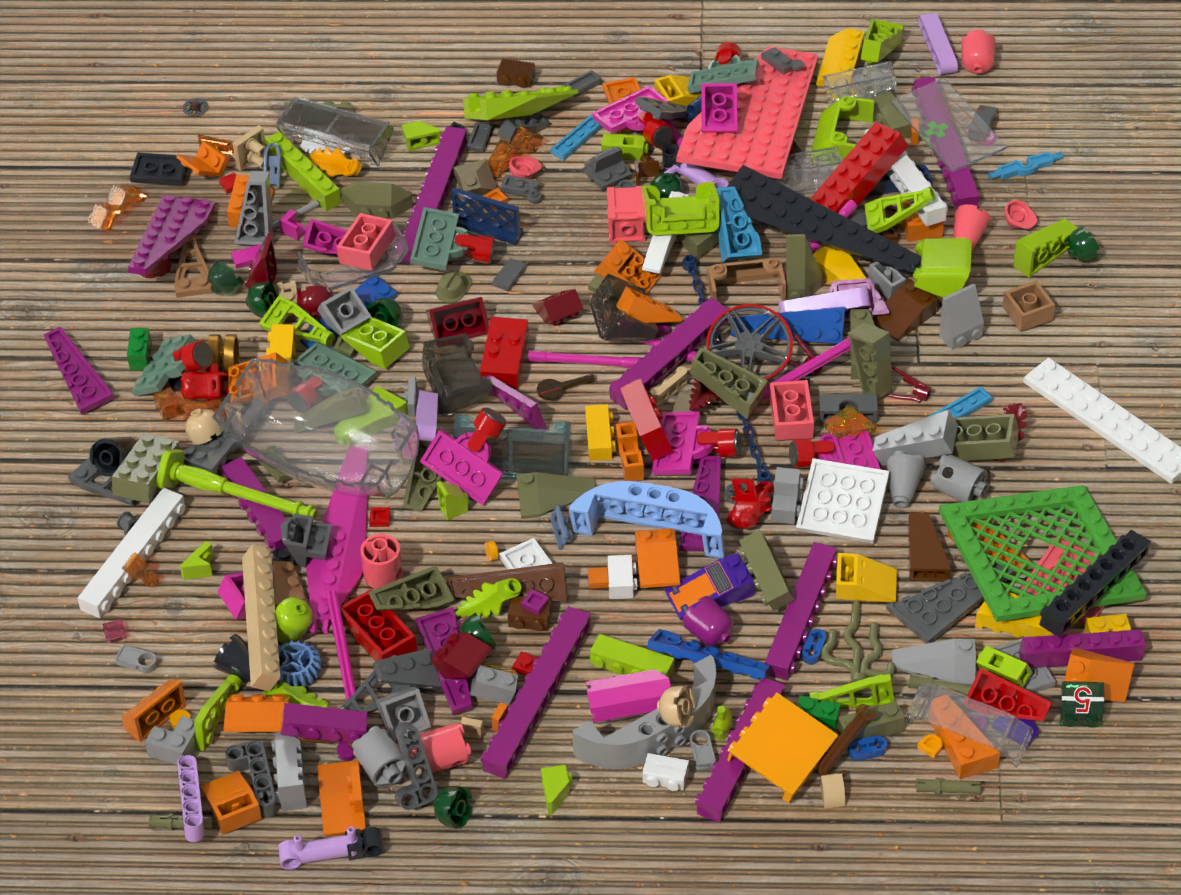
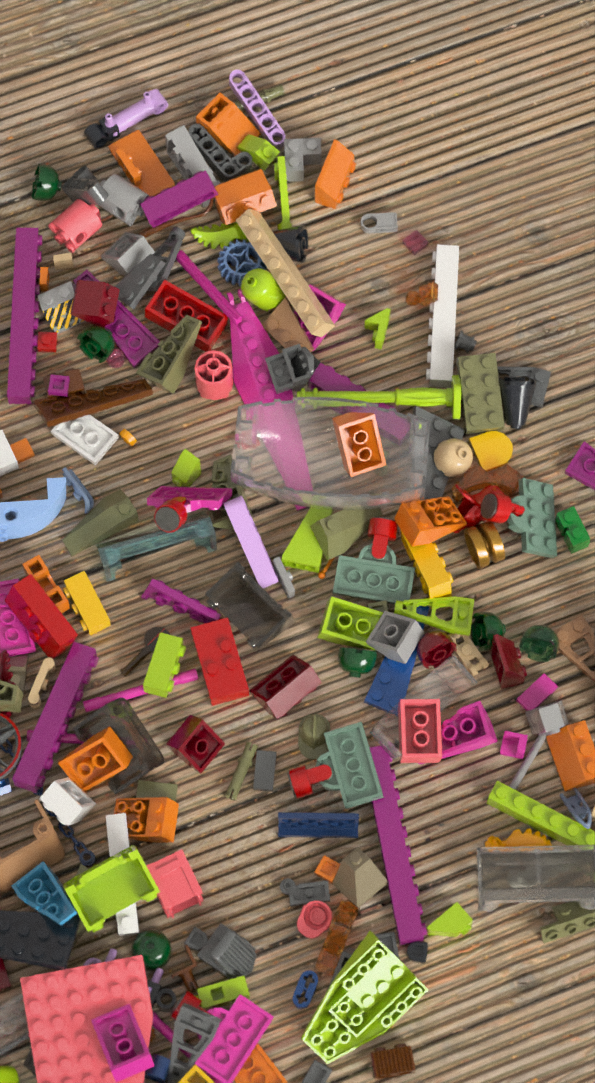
camera: 155 degrees right, 20 degrees up
(167, 429) = (491, 449): none -> yellow tile
(176, 715) = (308, 184): light orange tile -> none
(213, 759) = (260, 149): none -> lime slope
(287, 439) = (359, 442): none -> orange slope
(376, 199) = (446, 806): olive wedge -> none
(490, 598) = (90, 382): lime plant -> none
(524, 281) = (244, 763): none -> olive pin
(555, 357) = (164, 665): none -> lime brick
(556, 133) = (309, 991): none -> blue beam
(576, 138) = (282, 997): dark azure tile -> none
(687, 288) = (67, 801): none -> white brick

